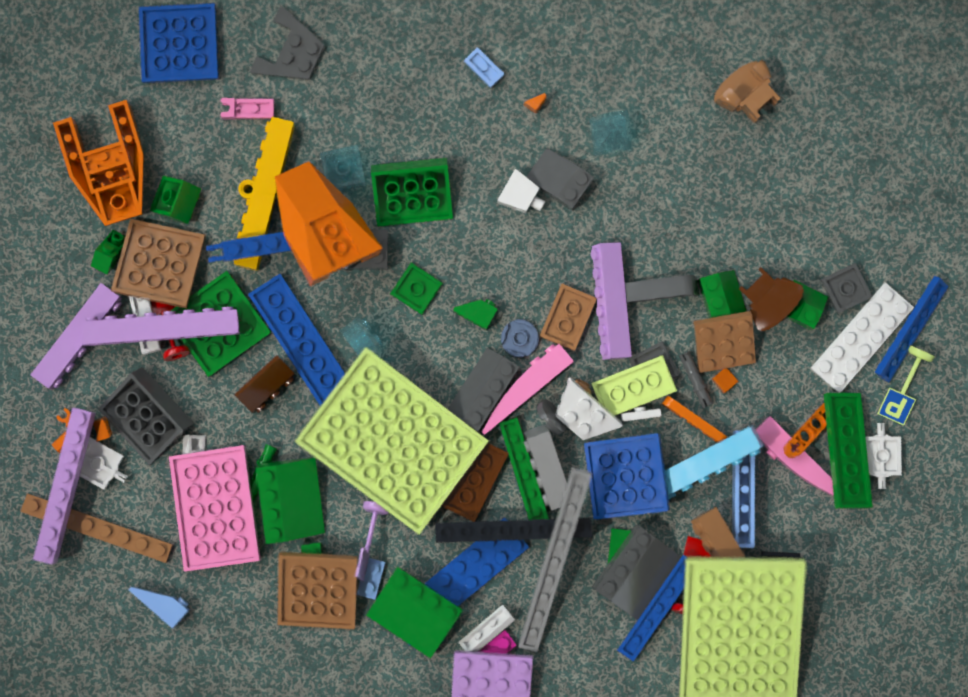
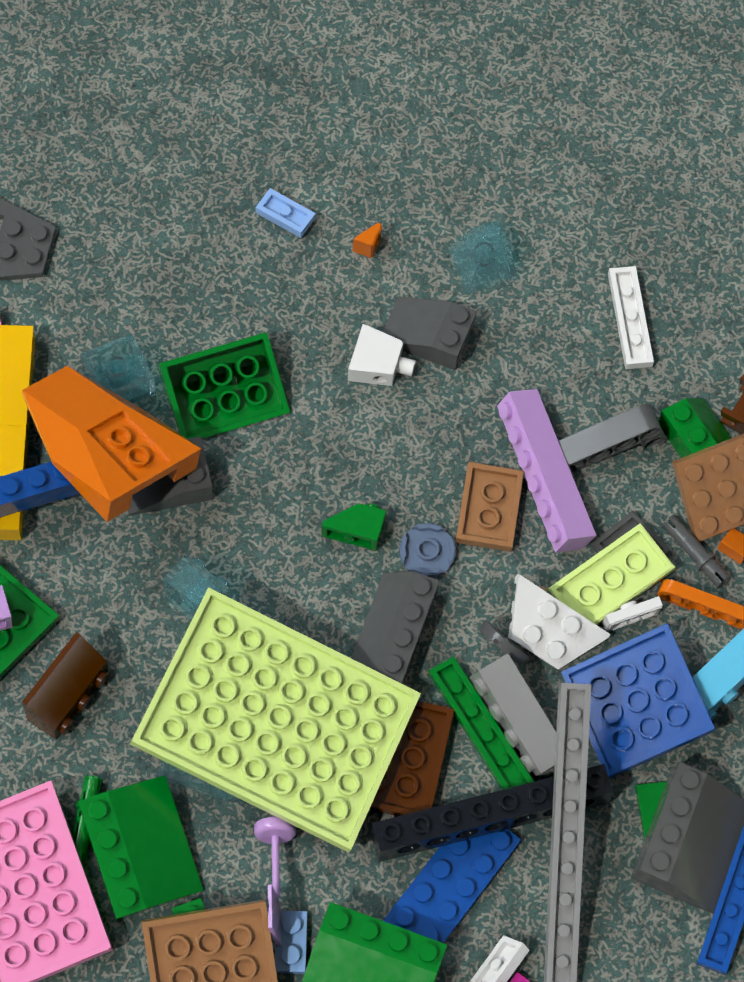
camera: 15 degrees left, 20 degrees down
(298, 337) = (99, 613): blue plate -> none
(416, 288) = (260, 514): green tile -> none
(534, 379) = (460, 604): bright pink slope -> none
(700, 199) = (630, 317): none -> white plate
(747, 90) = (654, 171): medium nougat piece -> none

